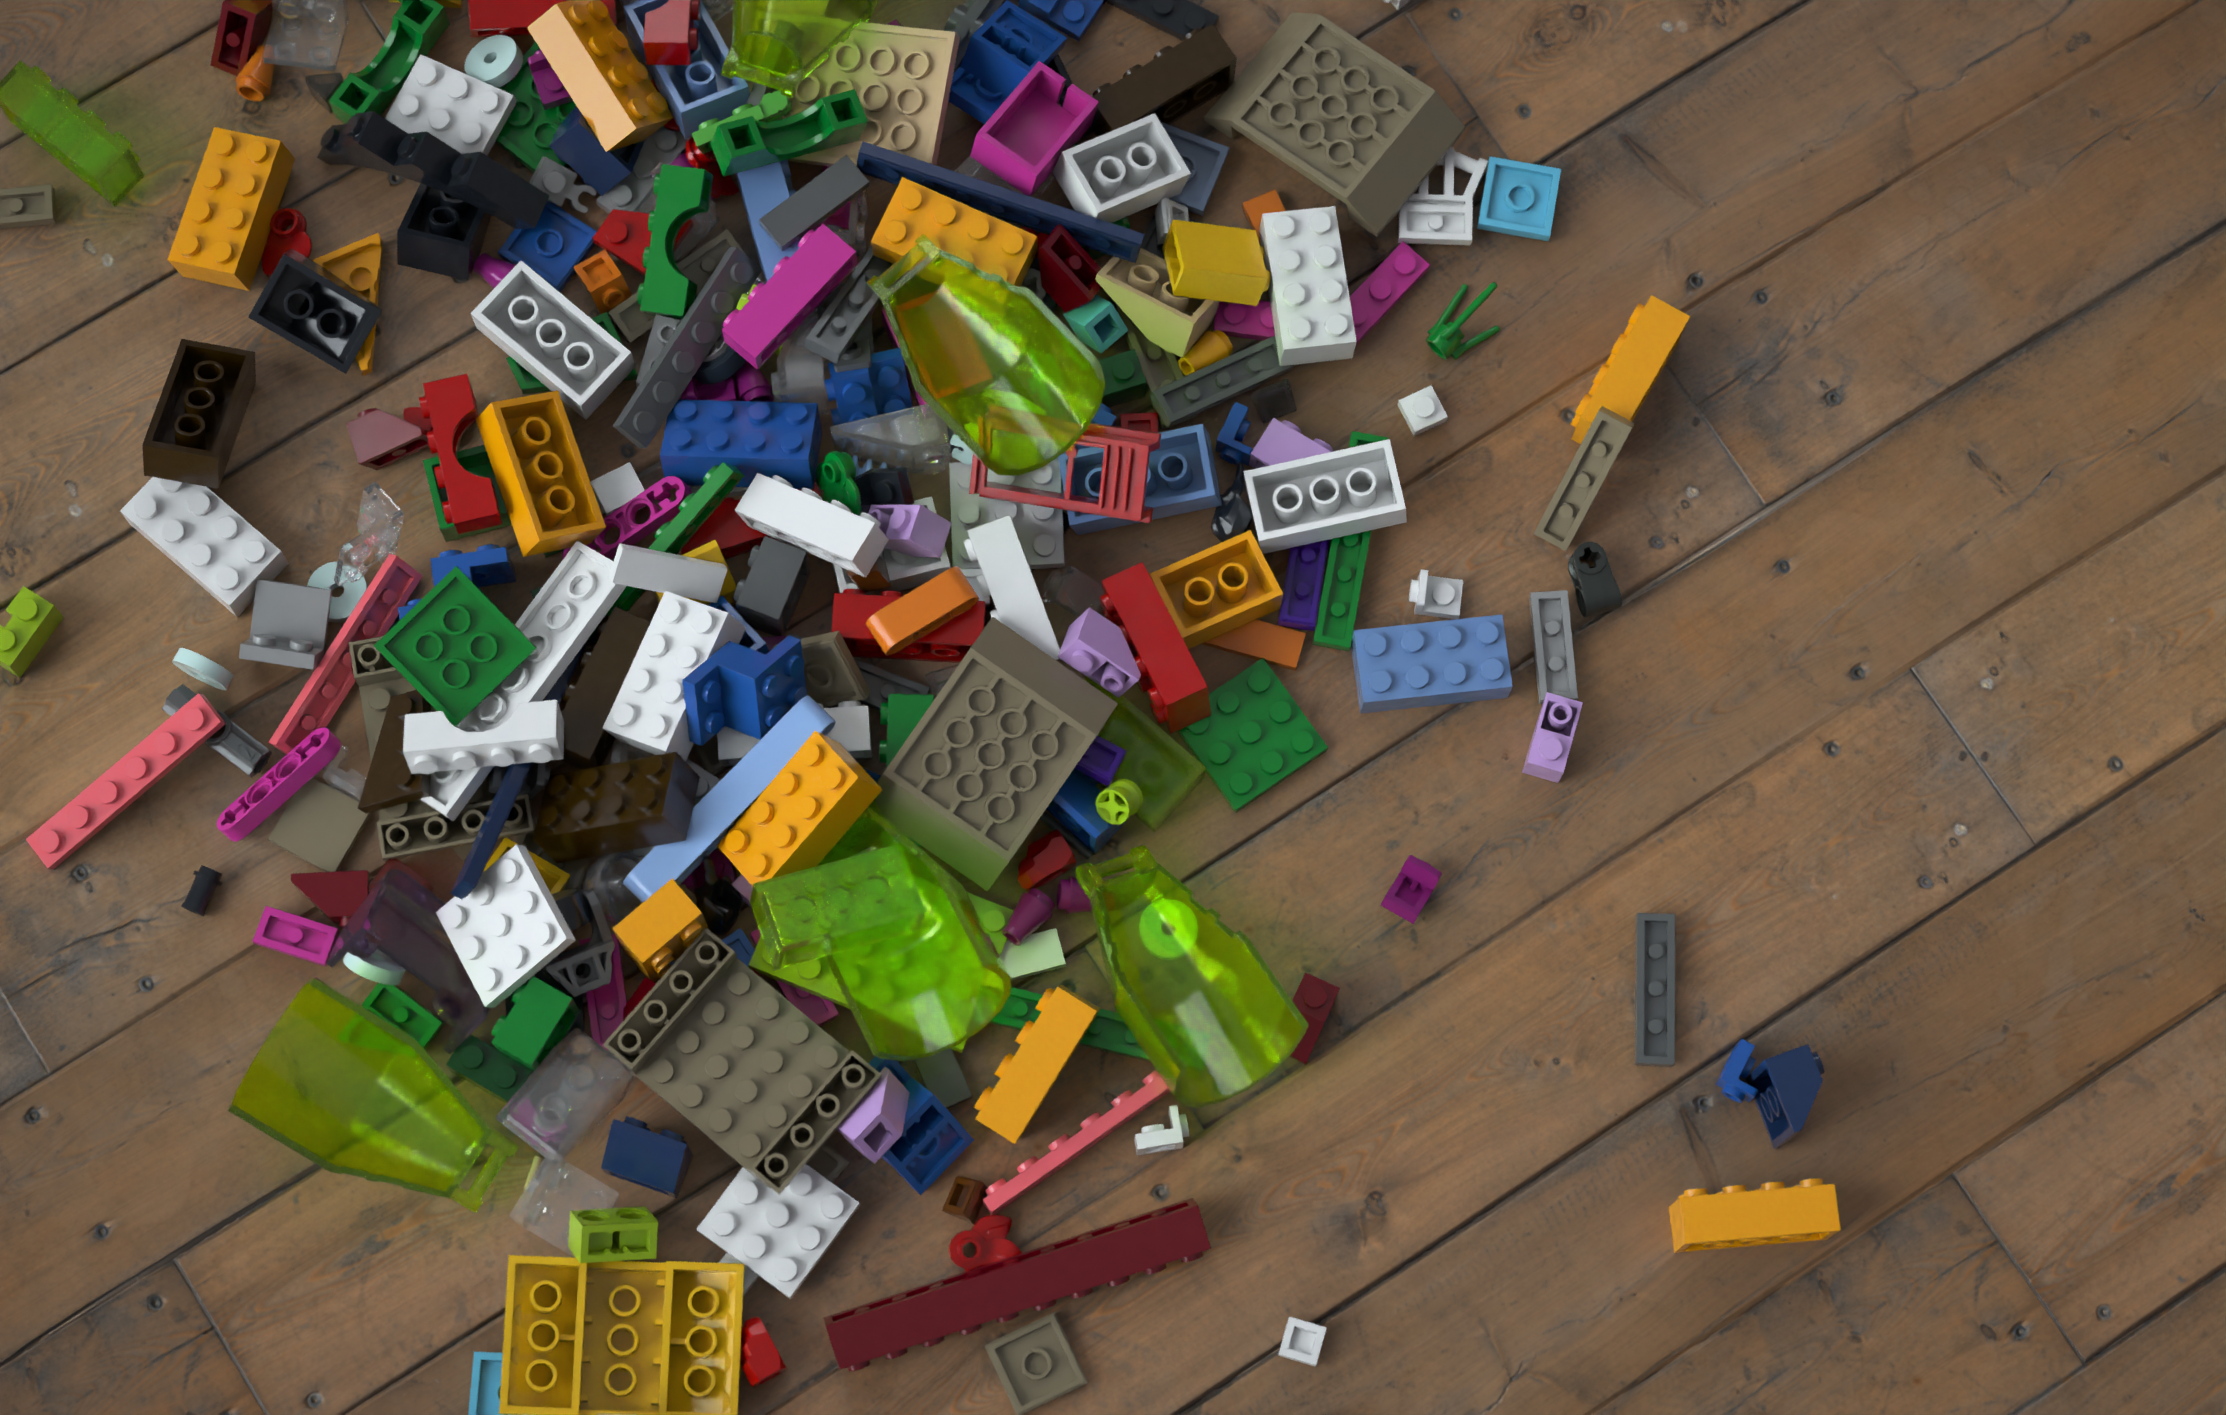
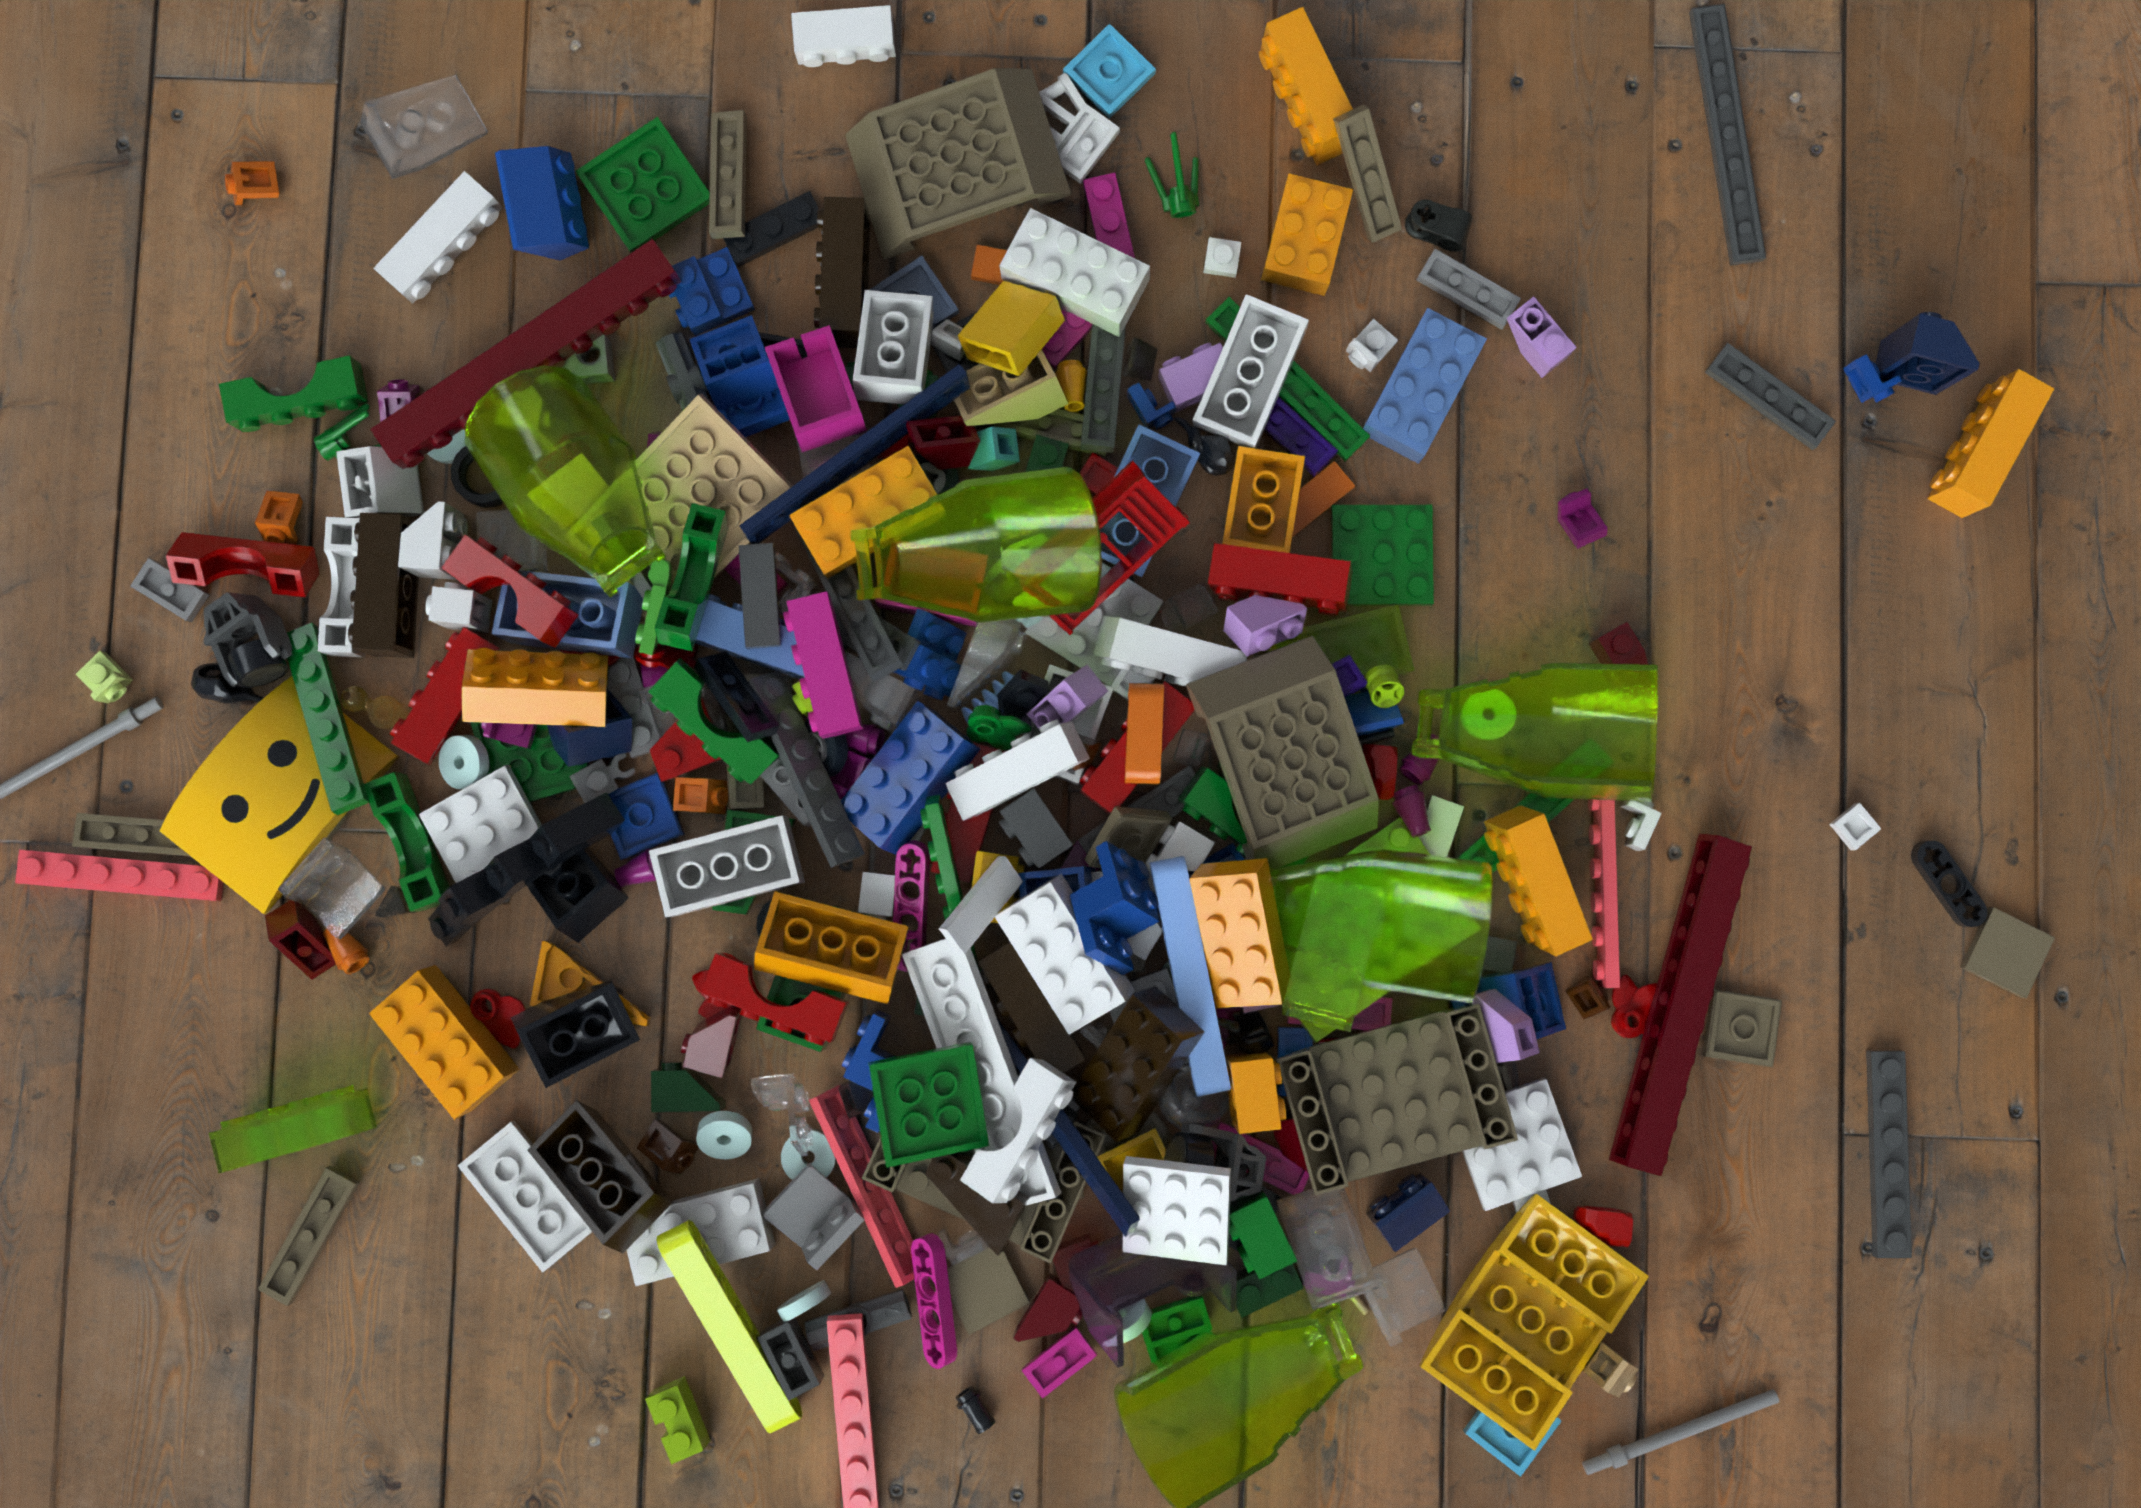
camera: 50 degrees left, 10 degrees up
(135, 369) = (524, 1196): none -> white plate
(137, 616) = (727, 1323): none -> neon yellow beam
(144, 690) = (791, 1357): none -> dark grey brick
(263, 463) = (667, 1148): none -> reddish brown bracket
(321, 500) = (724, 1135): none -> light aqua piece
(323, 439) = (682, 1090): none -> dark green slope
(417, 589) = (855, 1098): none -> clear smoke slope
(613, 1234) = (1452, 1276): lime brick -> none
(711, 244) = (736, 696): none -> black plate
(1495, 468) = (1307, 234): none -> light orange brick
(1875, 789) = (1727, 134): none -> dark grey tile

